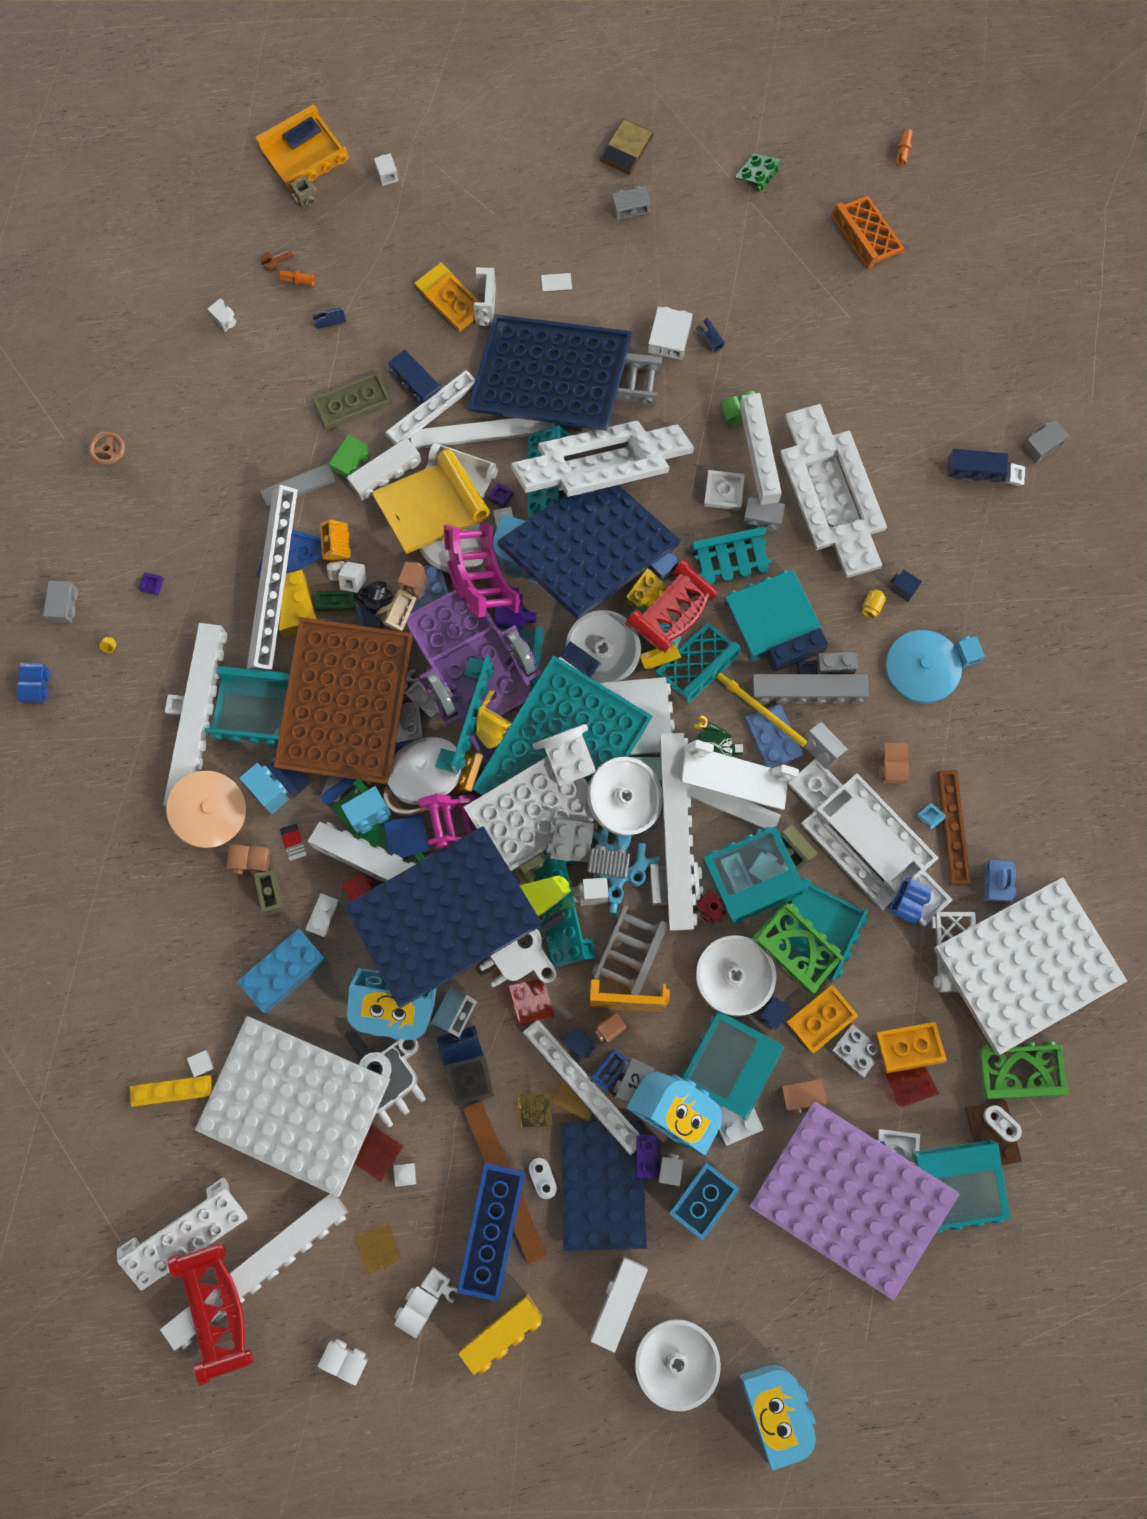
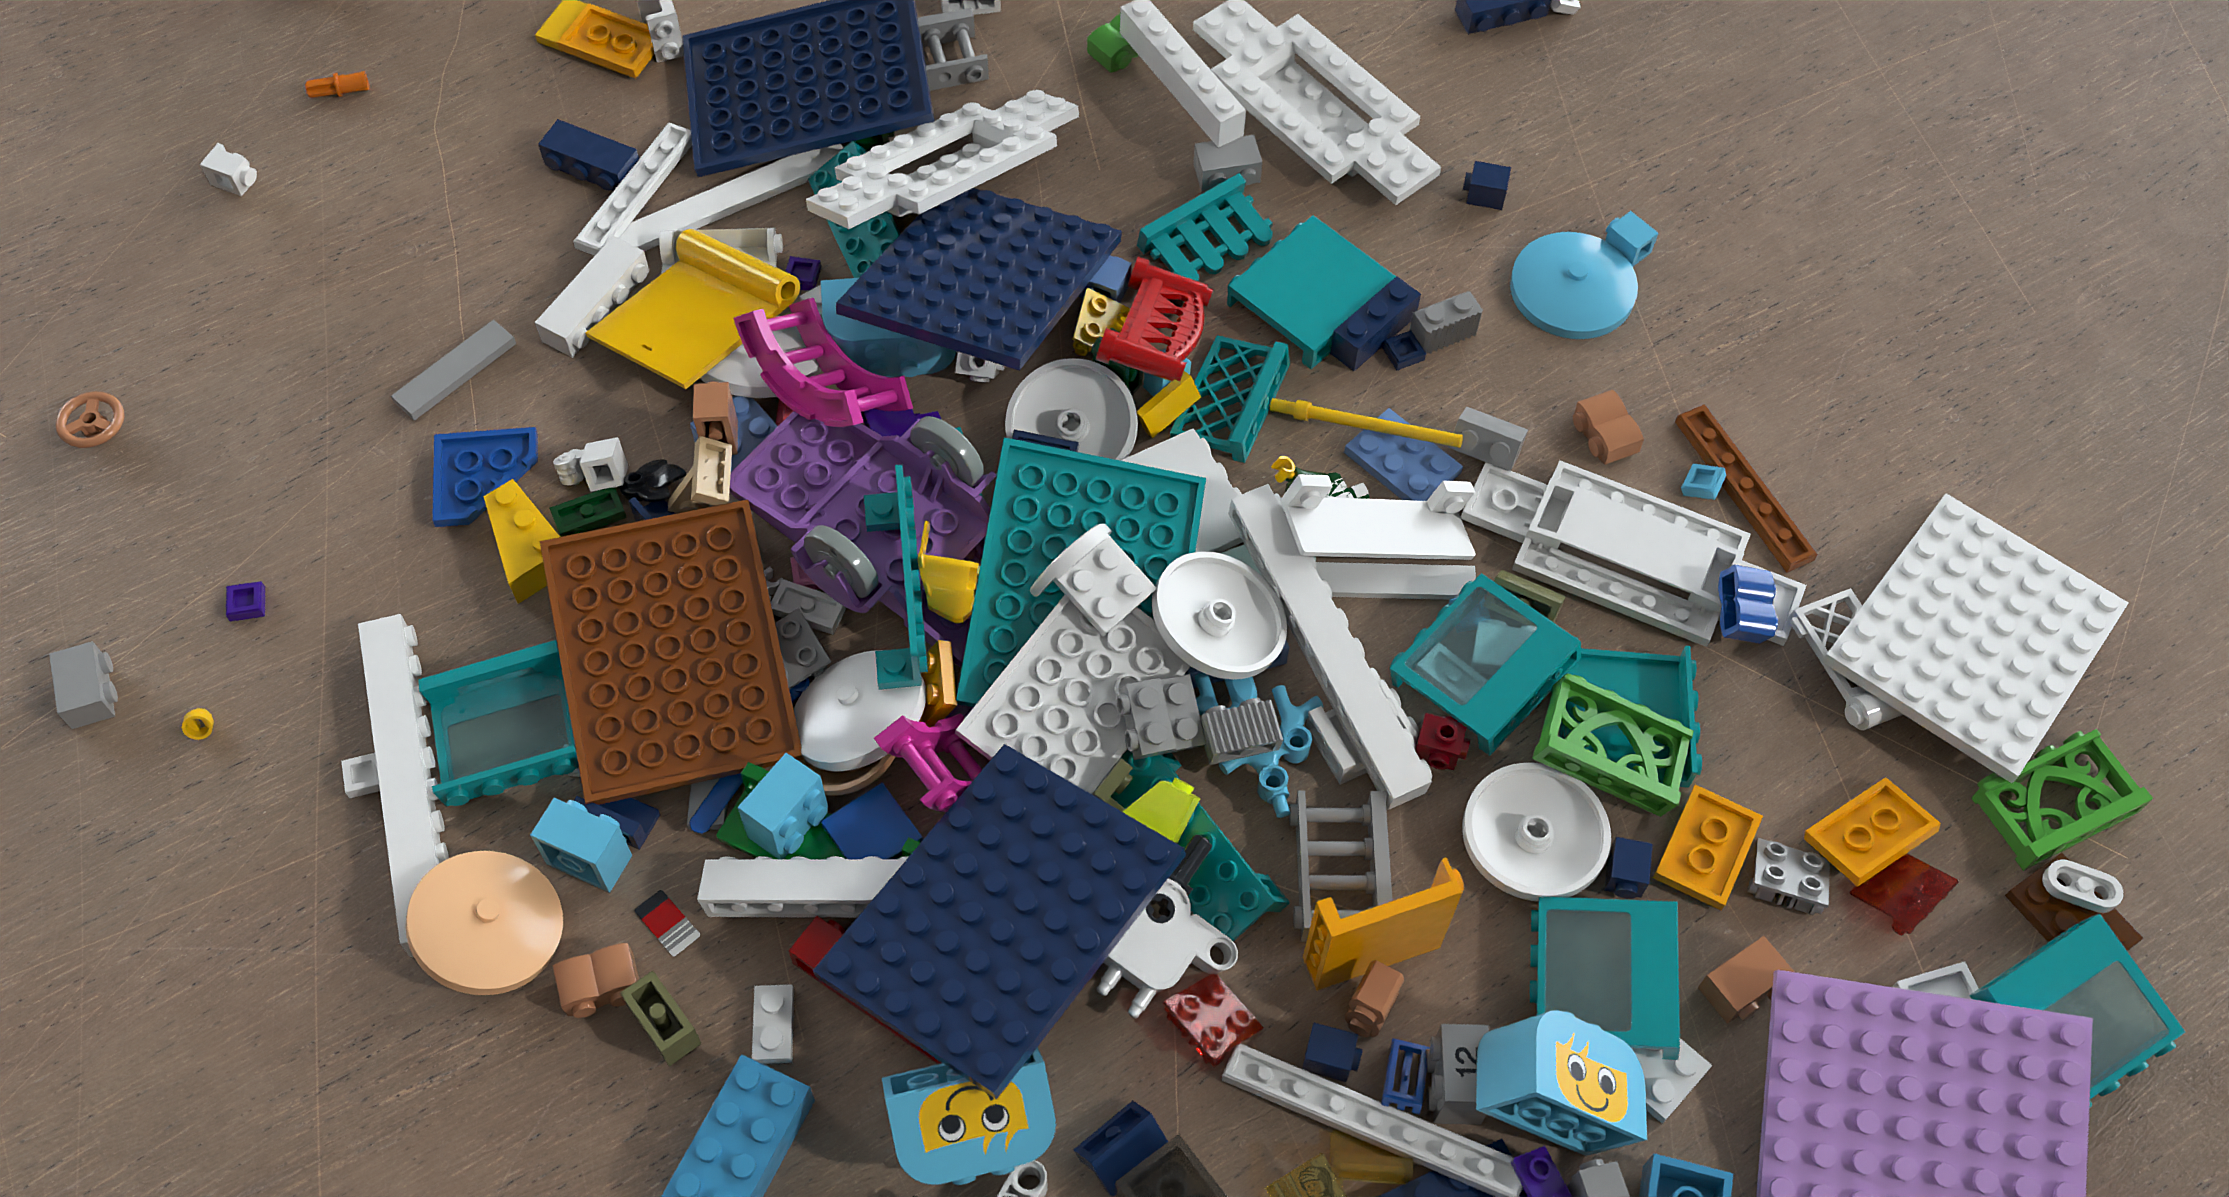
camera: 25 degrees left, 15 degrees down
(33, 683) = (73, 836): blue brick -> none
(272, 579) = (465, 510): white brick -> none
(274, 259) = (285, 78): dark orange bar -> none
(329, 318) = (414, 120): dark blue hinge -> none
(335, 540) = (551, 421): light orange brick -> none
(349, 457) = (526, 297): bright green brick -> none
(352, 401) = (497, 223): olive tile -> none
(454, 1012) = (1087, 1088): light grey brick -> none
(591, 892) = (1236, 790): white hinge -> none
(724, 490) = (1151, 152): white plate -> none
(810, 688) = (1423, 369): light grey brick -> none
(873, 604) = (1454, 225): yellow brick -> none
(999, 882) = (1859, 532): medium blue brick -> none

